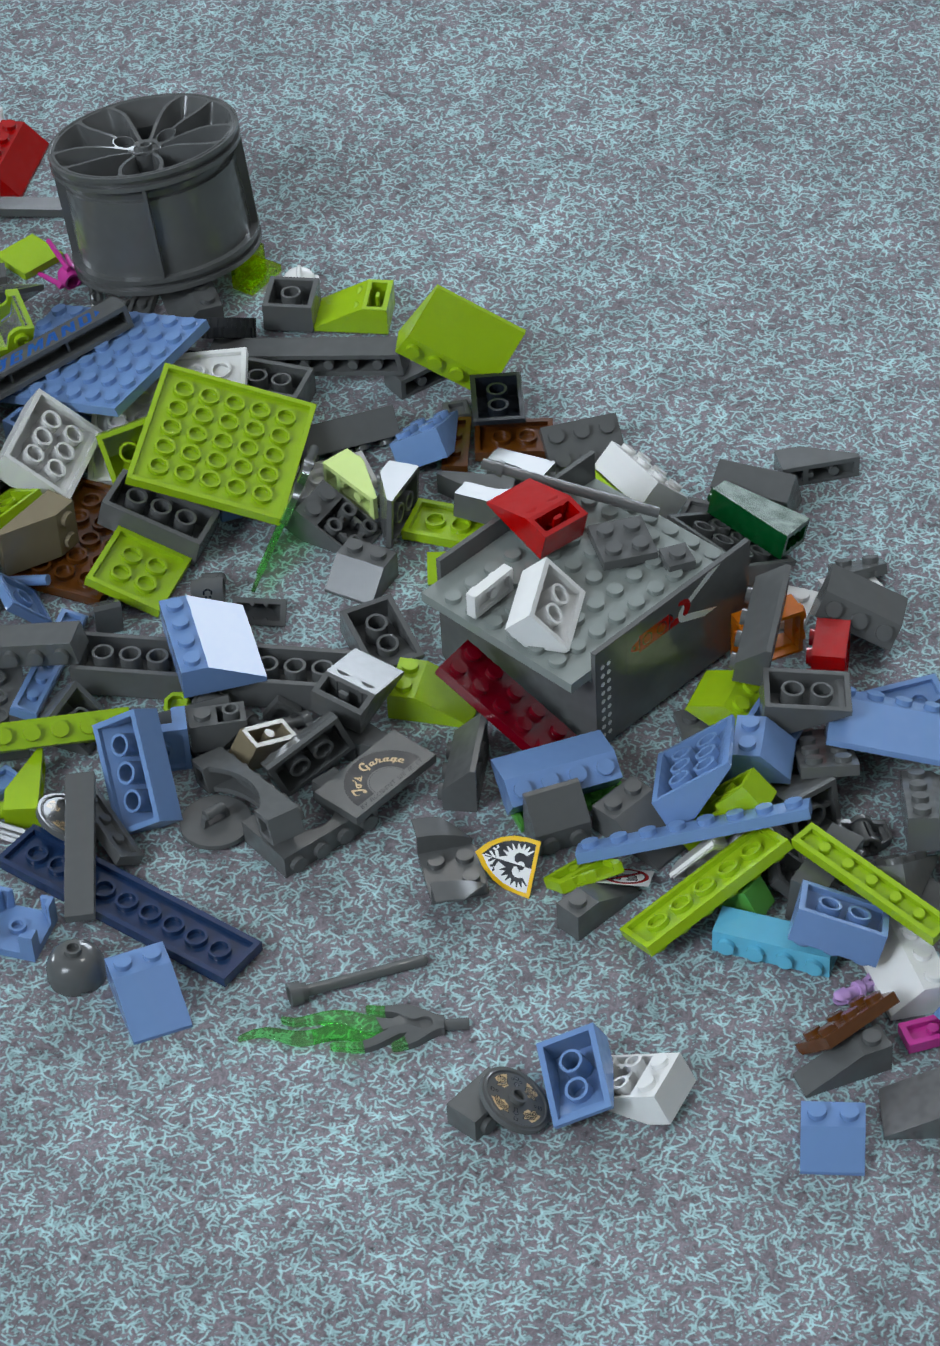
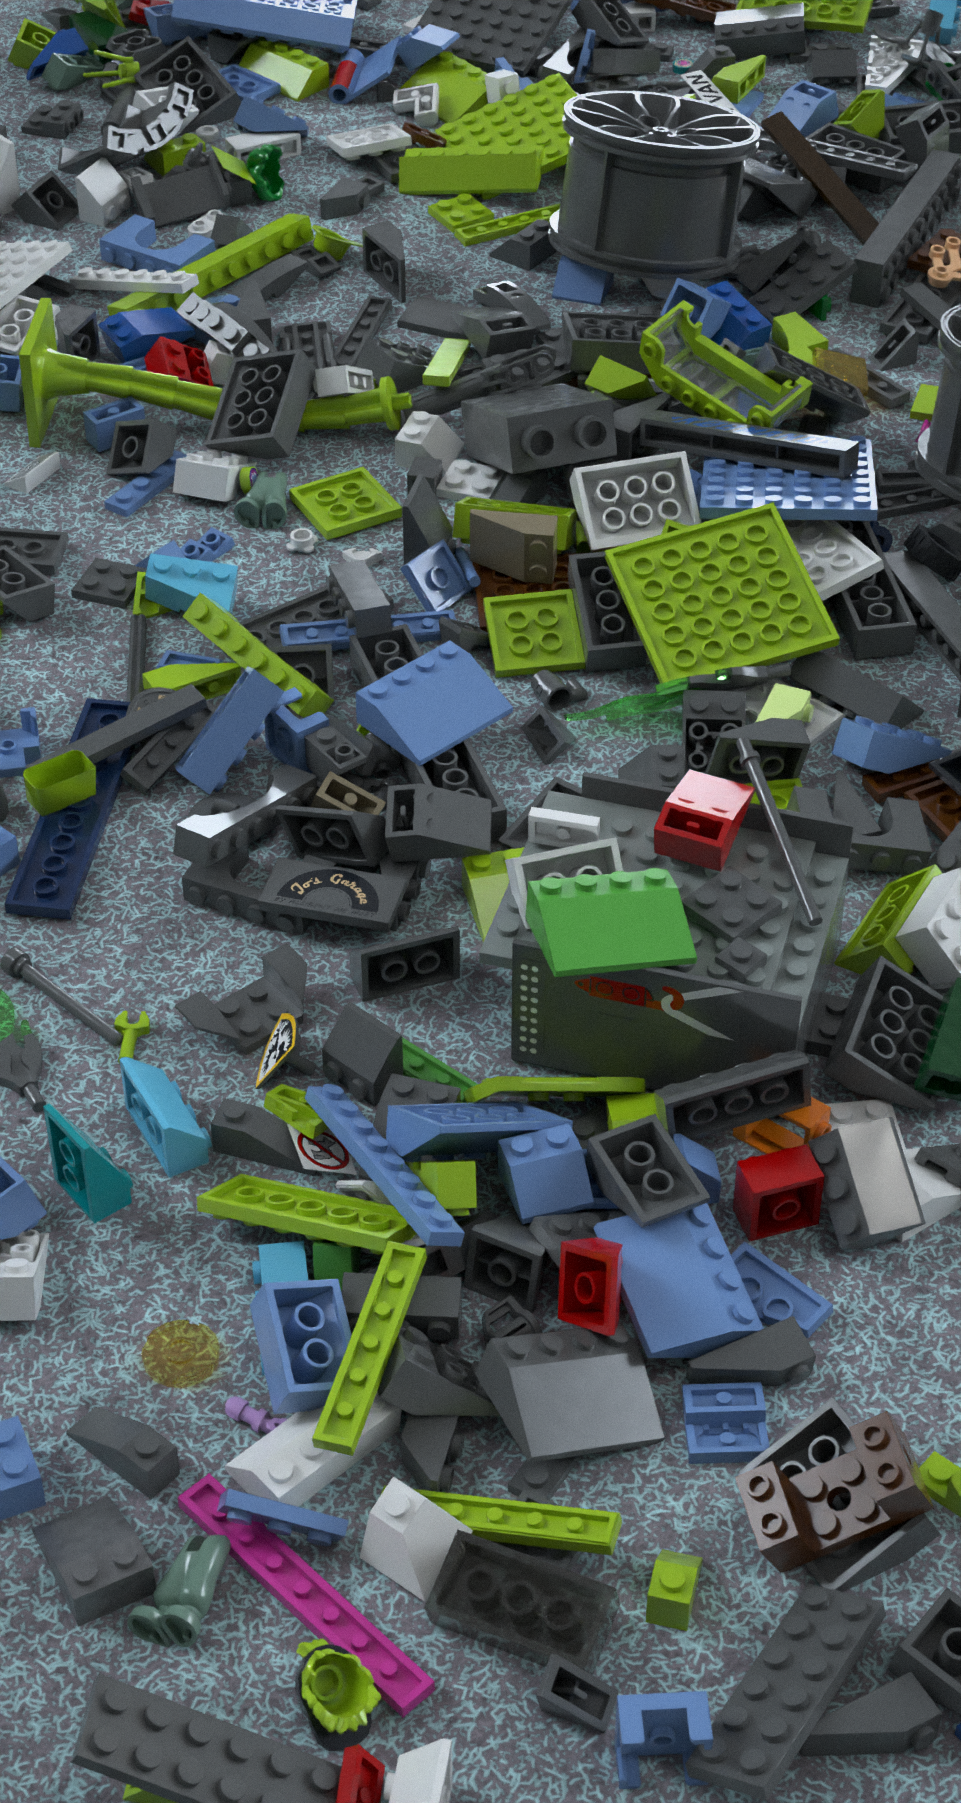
camera: 60 degrees right, 0 degrees up
(107, 879) = (60, 782): none -> lime piece
(421, 947) = (131, 1032): none -> lime bar
(501, 699) = (474, 994): dark red plate -> none
(543, 952) = (163, 1117): none -> medium azure slope
(575, 998) = (85, 1169): none -> teal slope
(580, 757) = (431, 1023): medium blue slope -> none
(615, 598) = (609, 922): none -> bright green slope
(649, 750) = (541, 1088): none -> lime piece
(769, 1022) = (185, 1363): none -> clear yellow tile
(844, 1024) = (177, 1419): reddish brown plate -> none
(887, 755) = (590, 1284): none -> red slope

